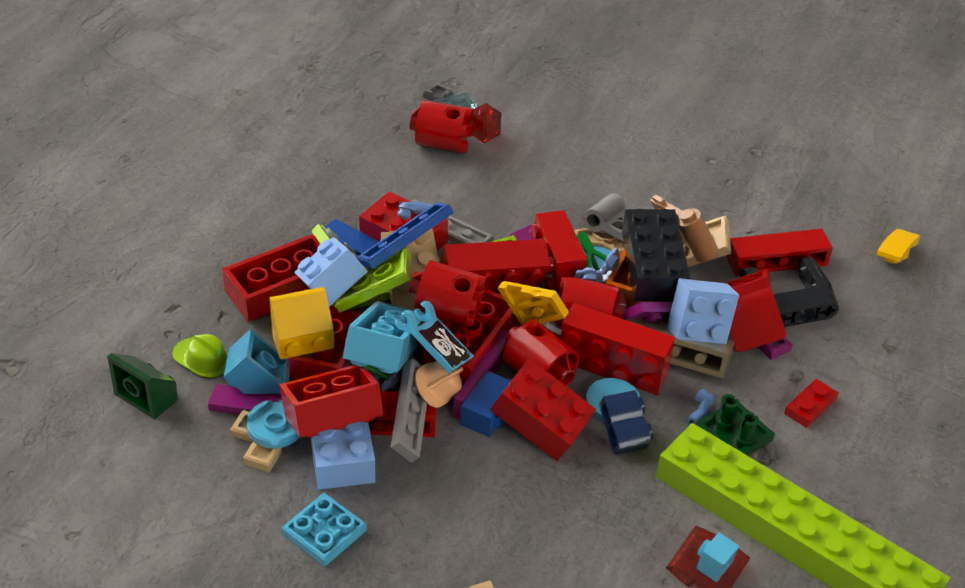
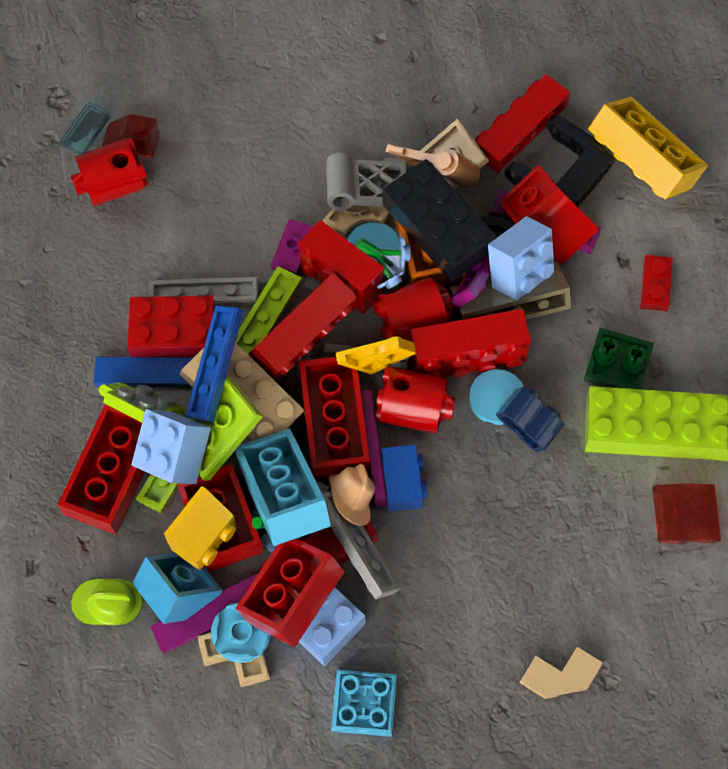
camera: 30 degrees left, 25 degrees up
(142, 384) = (91, 676): dark green slope -> none
(415, 207) = (177, 307): medium blue arm -> none
(435, 337) = (332, 462): flag -> none
(437, 91) = (57, 119): flat silver tile -> none
(450, 291) = (291, 406): red cylinder -> none
(543, 409) = (459, 458): red brick -> none
(706, 402) = (578, 358): medium blue arm -> none
(716, 556) = (698, 511): medium azure plate -> none
(871, 309) = (647, 147): none -> yellow brick
(898, 245) = (616, 44): yellow slope -> none

